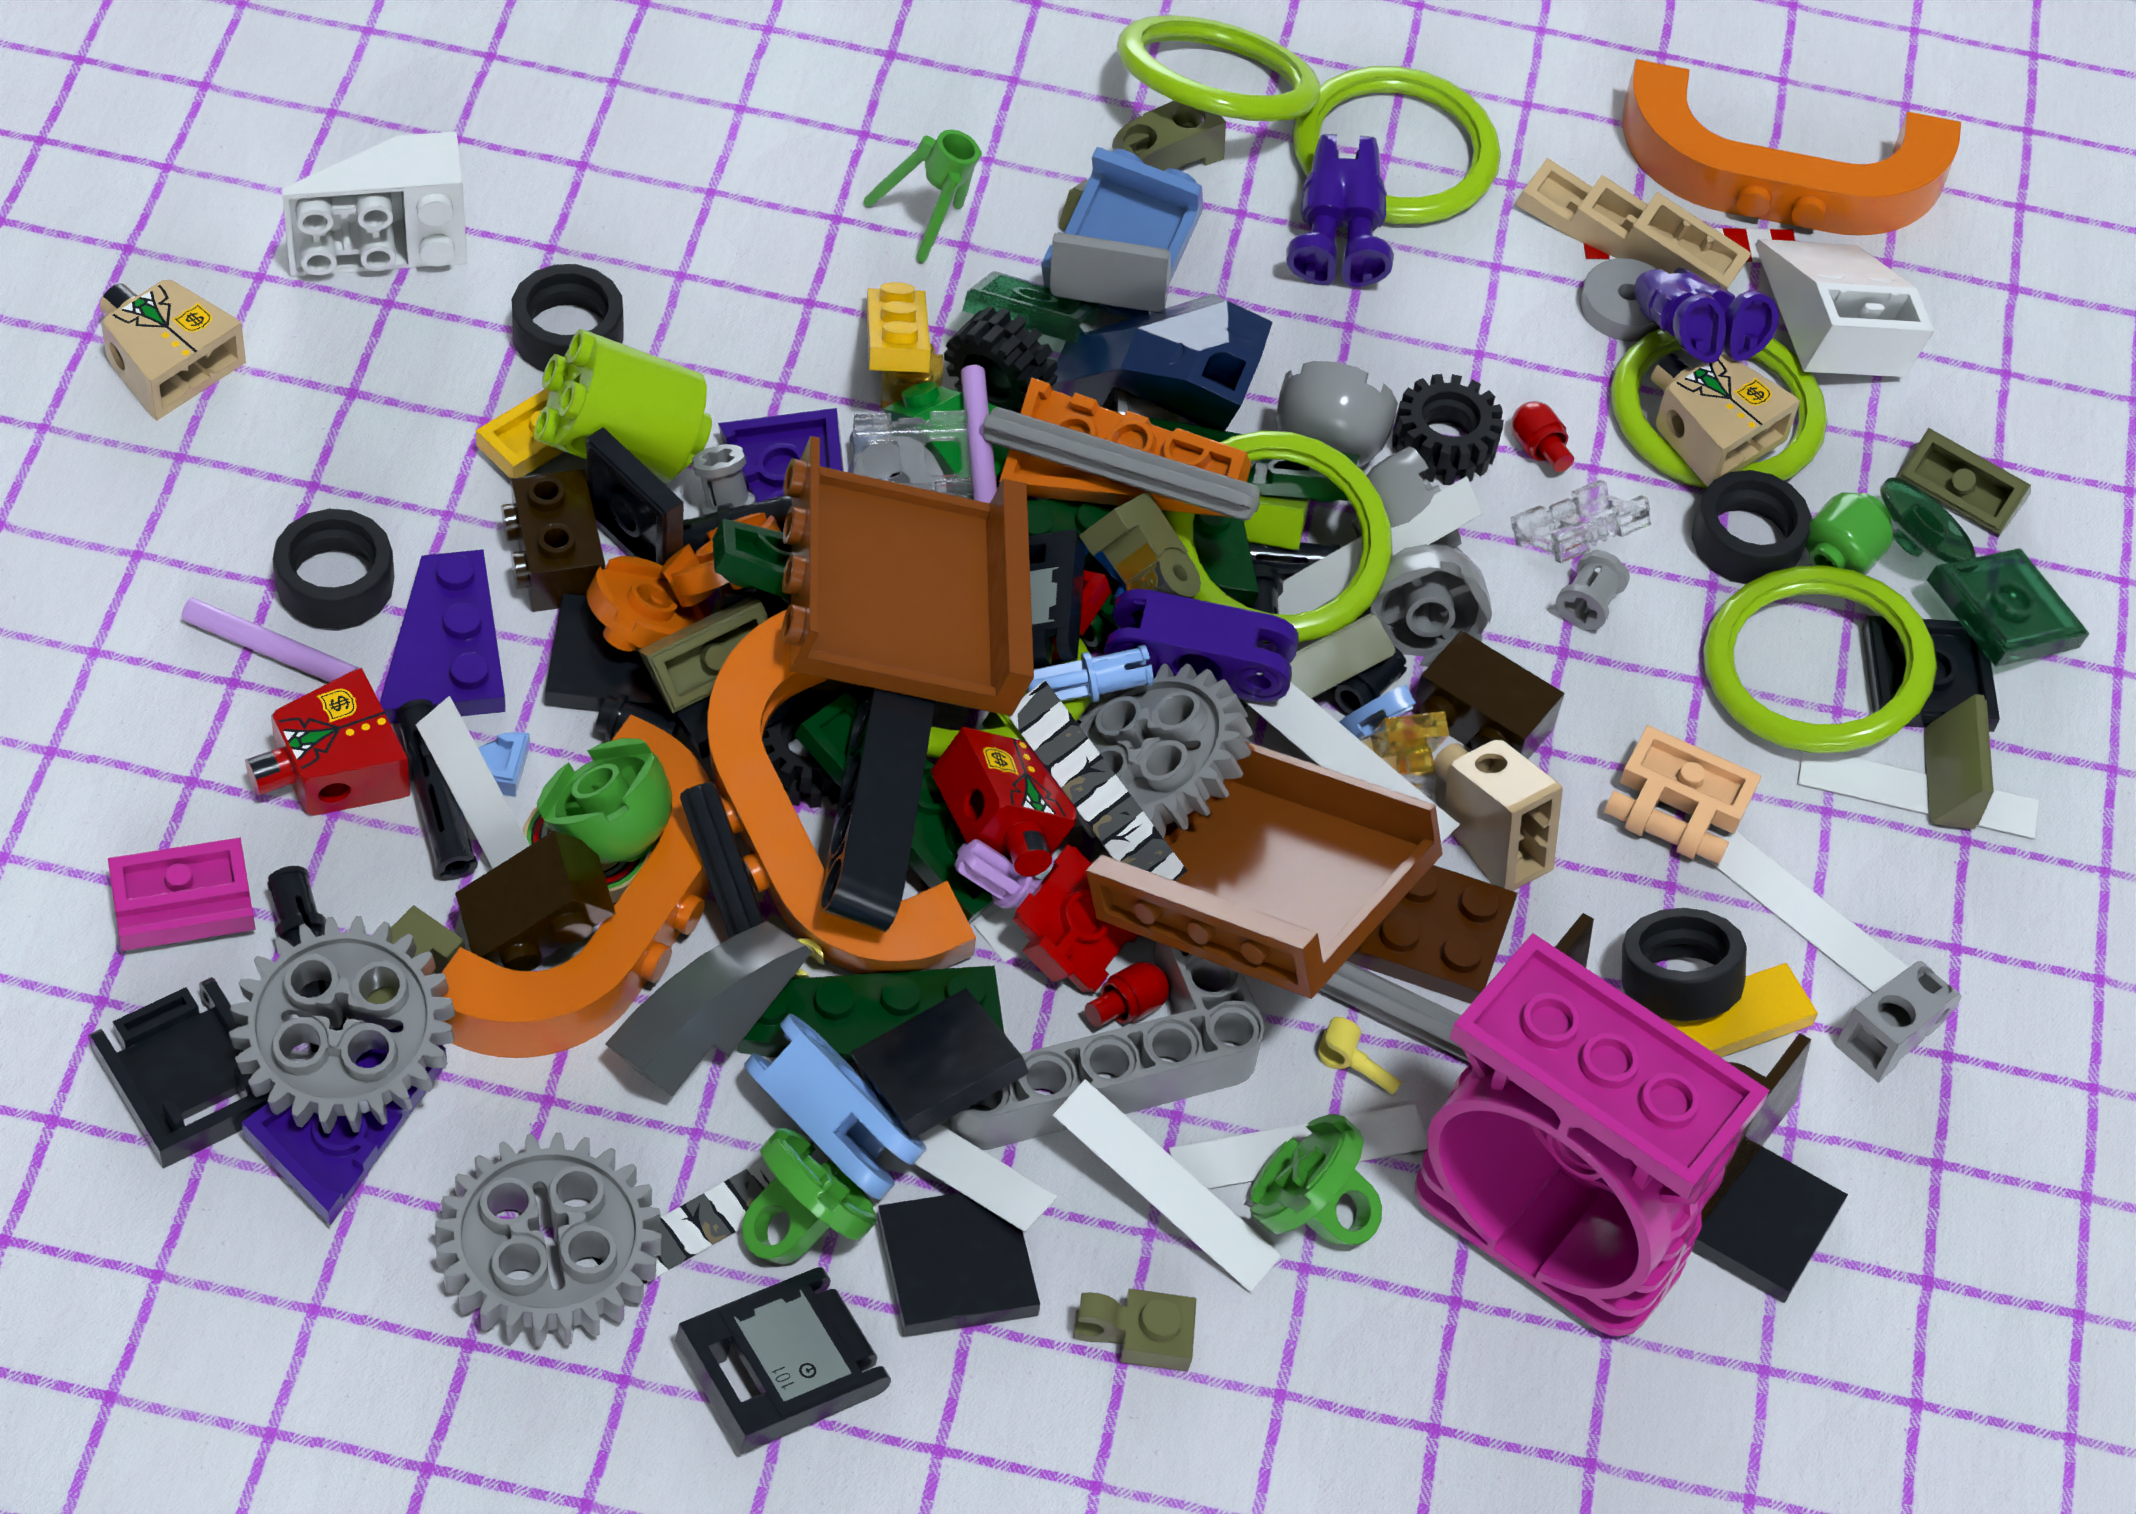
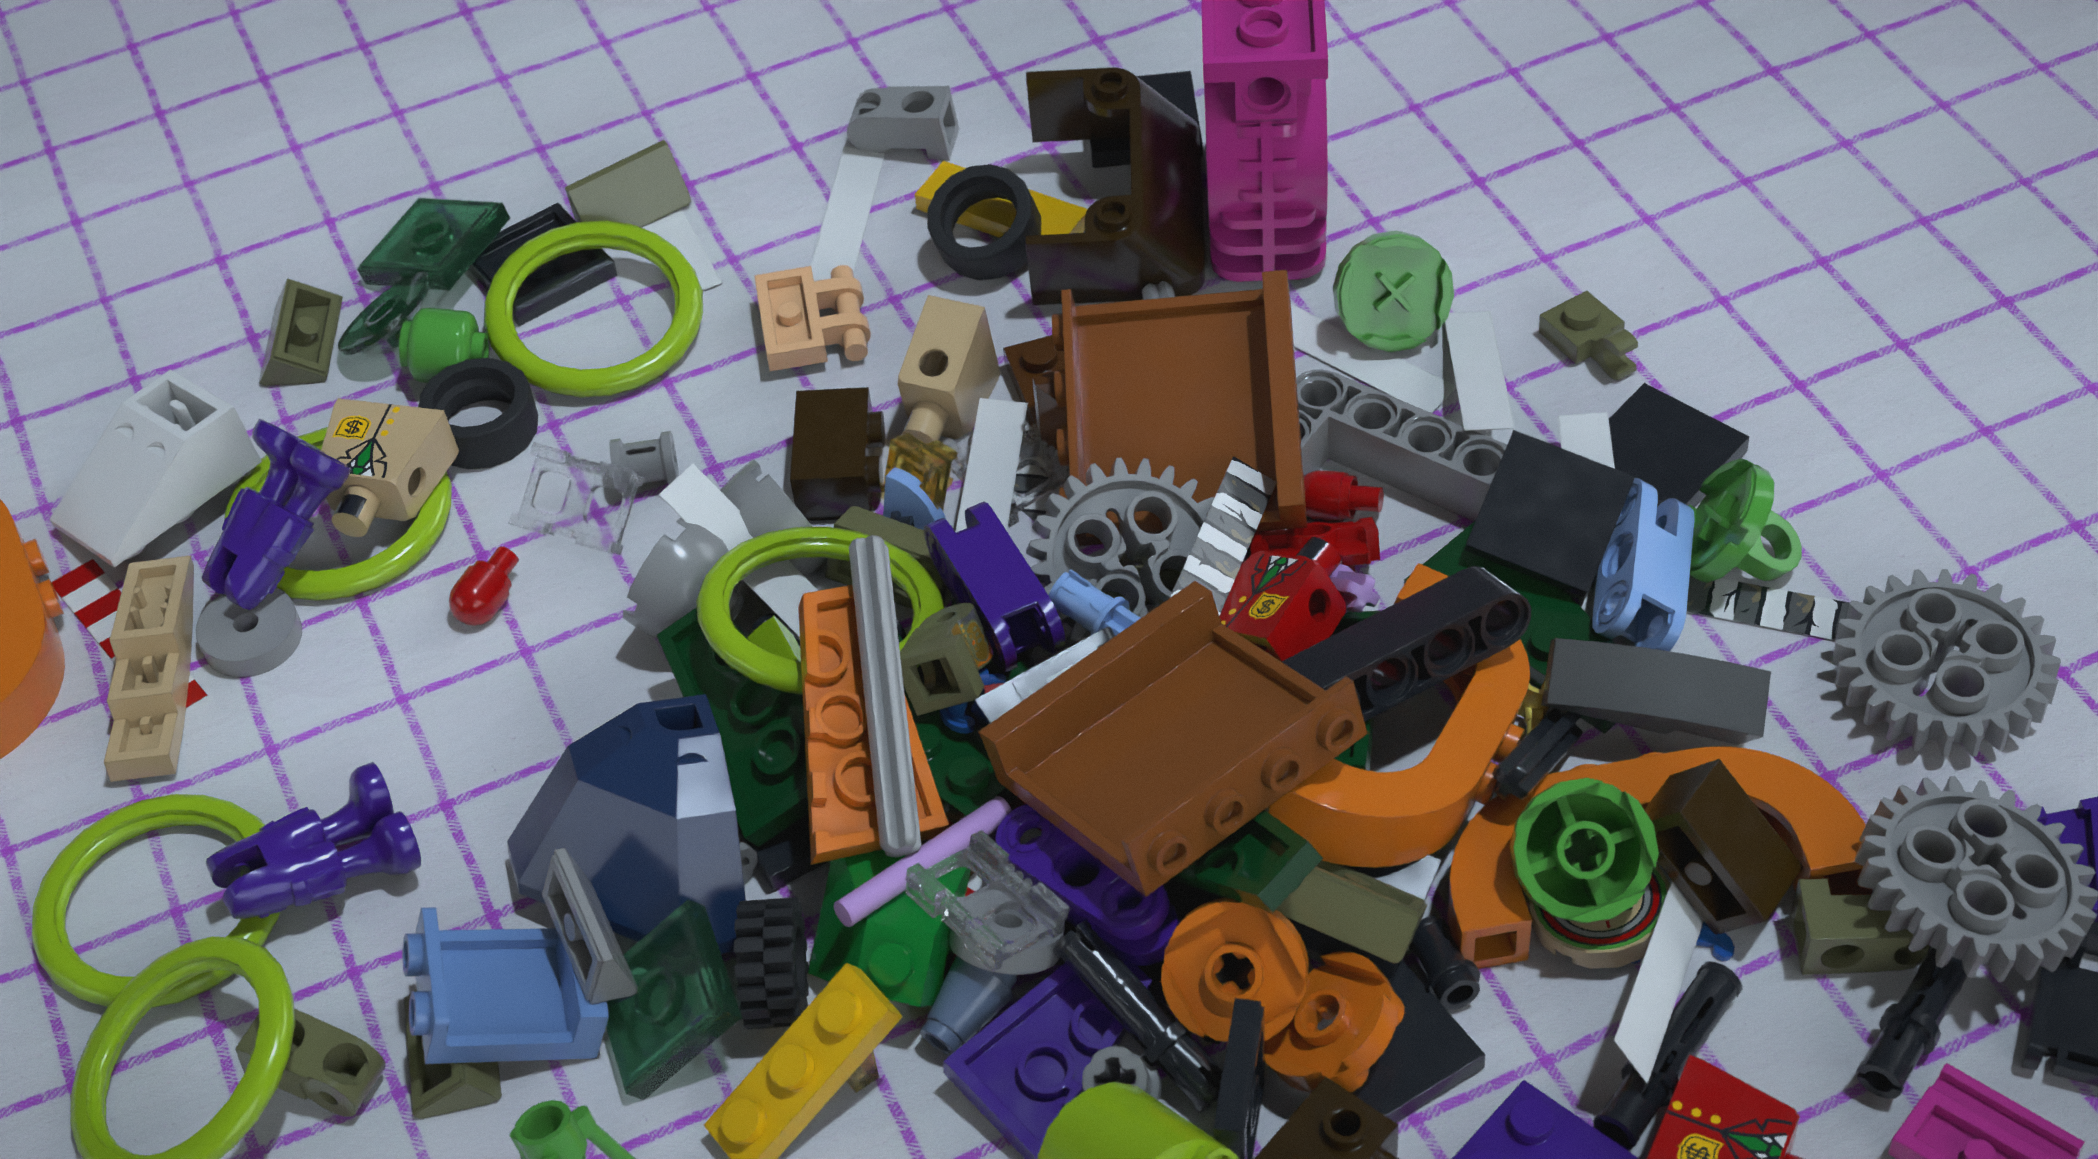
camera: 115 degrees left, 5 degrees down
(507, 759) = (1584, 1045): light blue tile -> none
(797, 1350) = (1840, 479): black container -> none
(1337, 408) = (615, 676): light grey cylinder -> none
(1452, 405) = (543, 670): black tyre -> none

